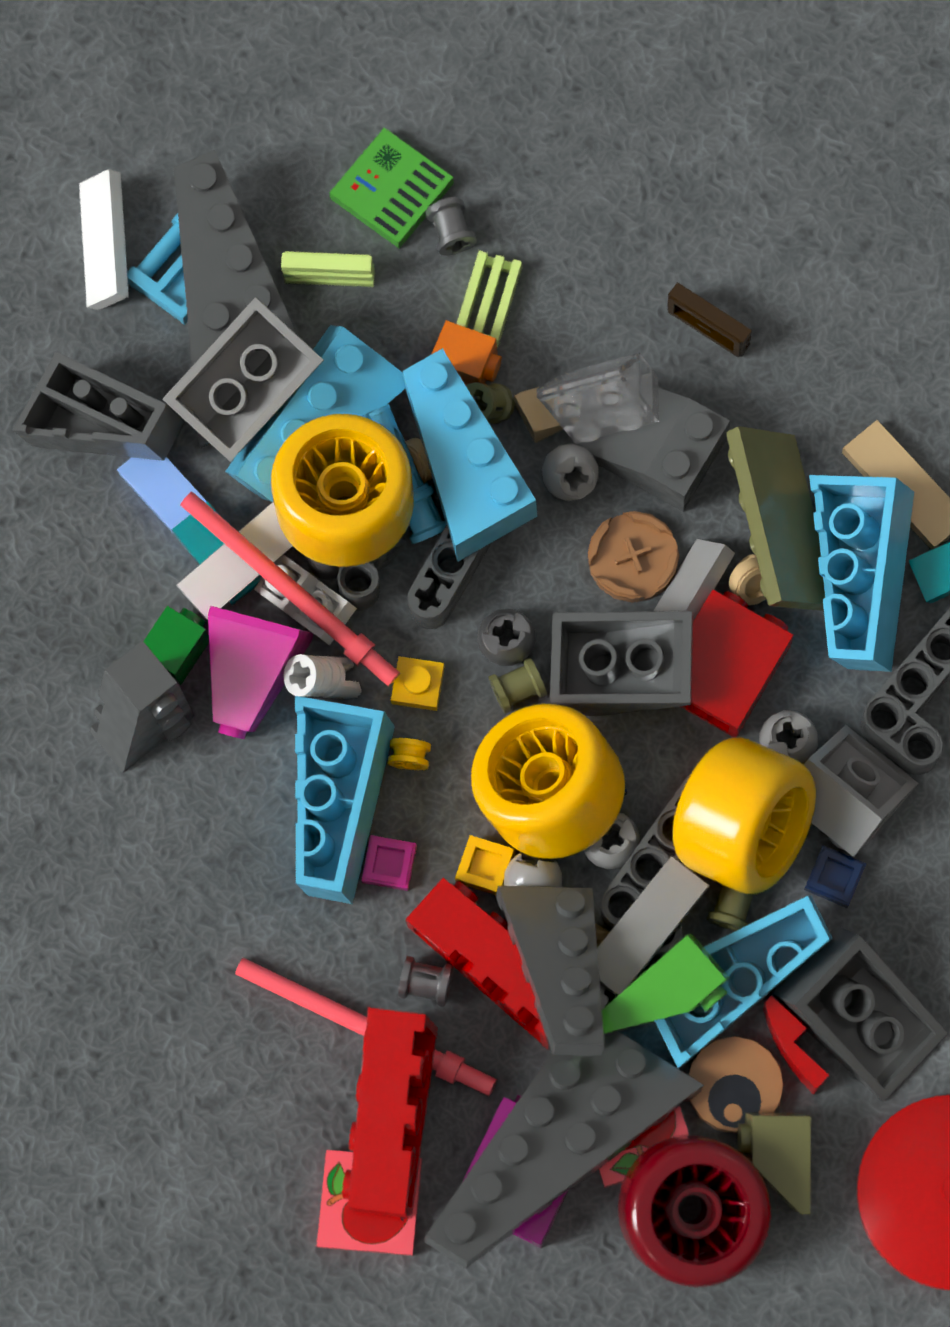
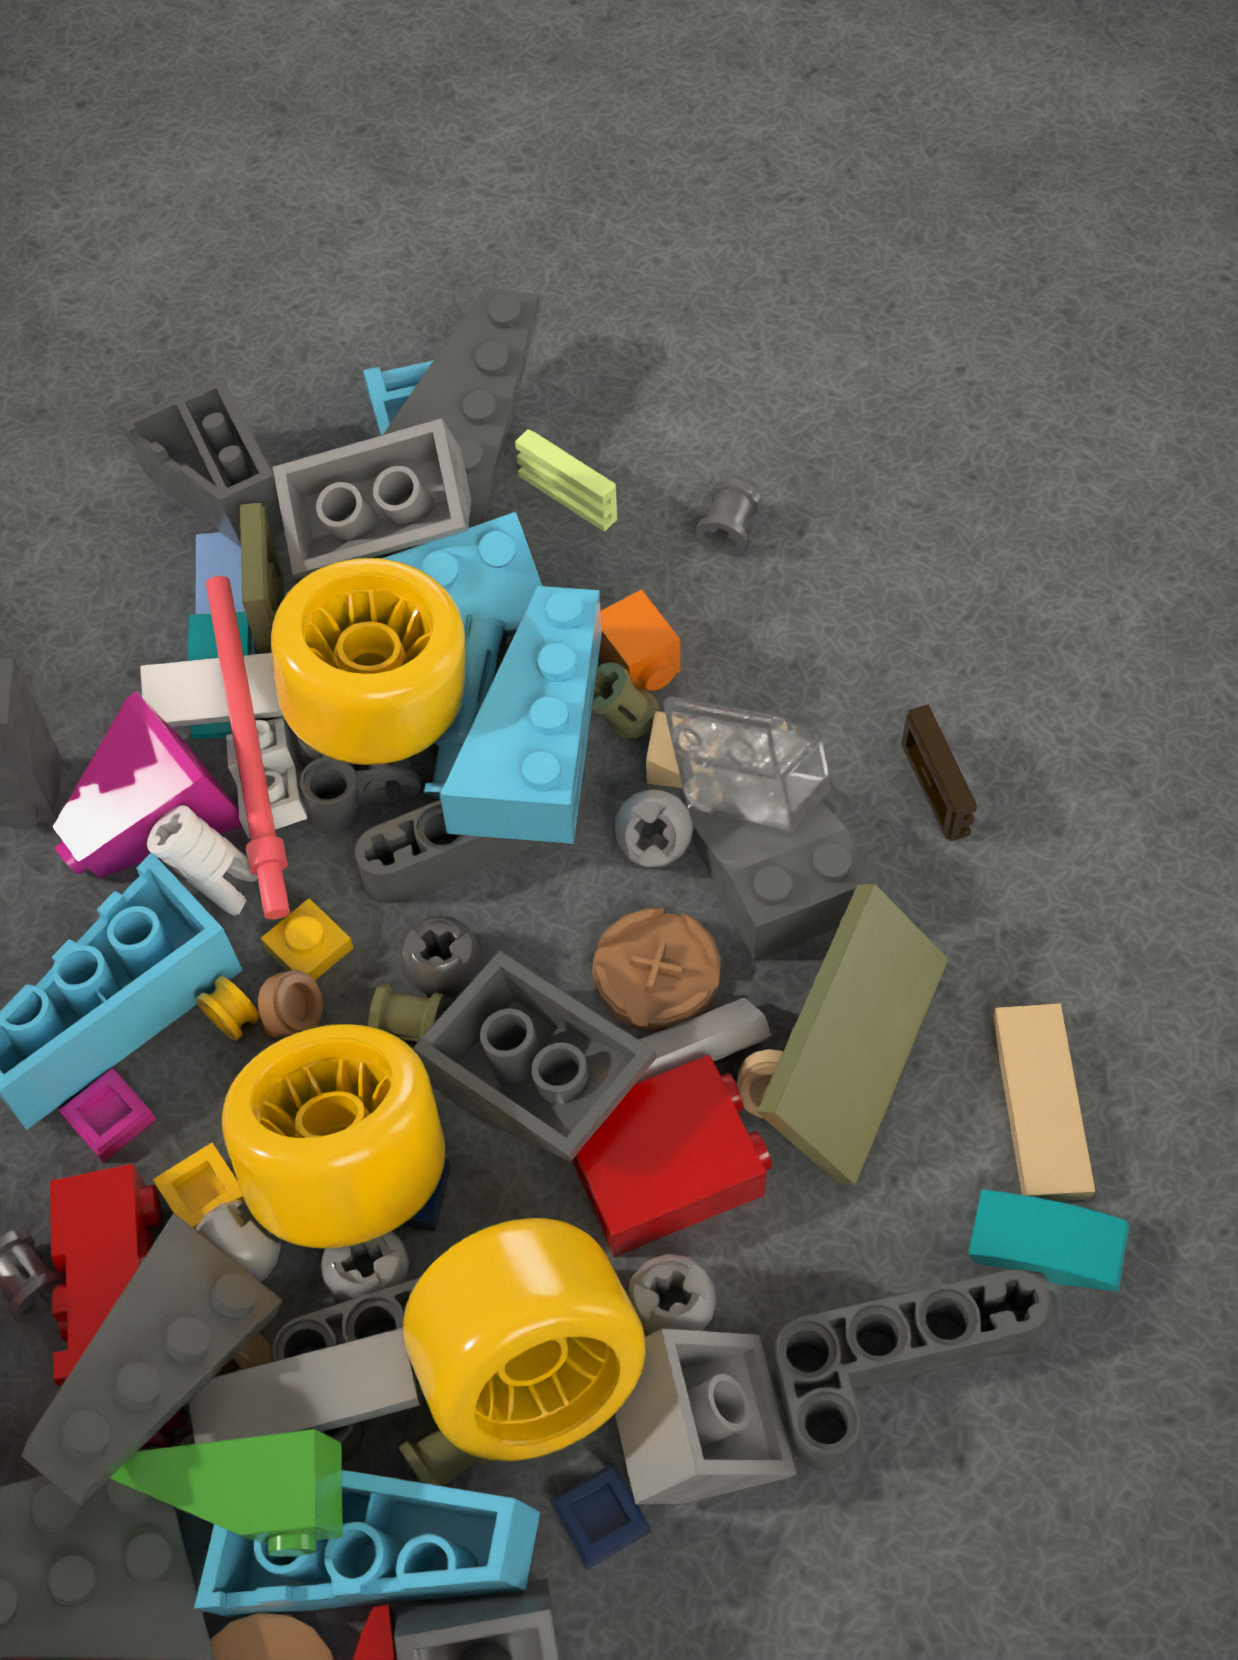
camera: 30 degrees right, 15 degrees down
(103, 240) = (373, 330): white tile -> none
(178, 641) = (80, 724): green brick -> none
(206, 478) = (260, 574): none -> olive tile
(391, 187) = (694, 447): bright green tile -> none
(441, 727) = (289, 1004): none -> medium nougat tile
(497, 264) = (707, 591): yellowish green tile -> none
(862, 564) = (914, 1152): medium azure wedge -> none

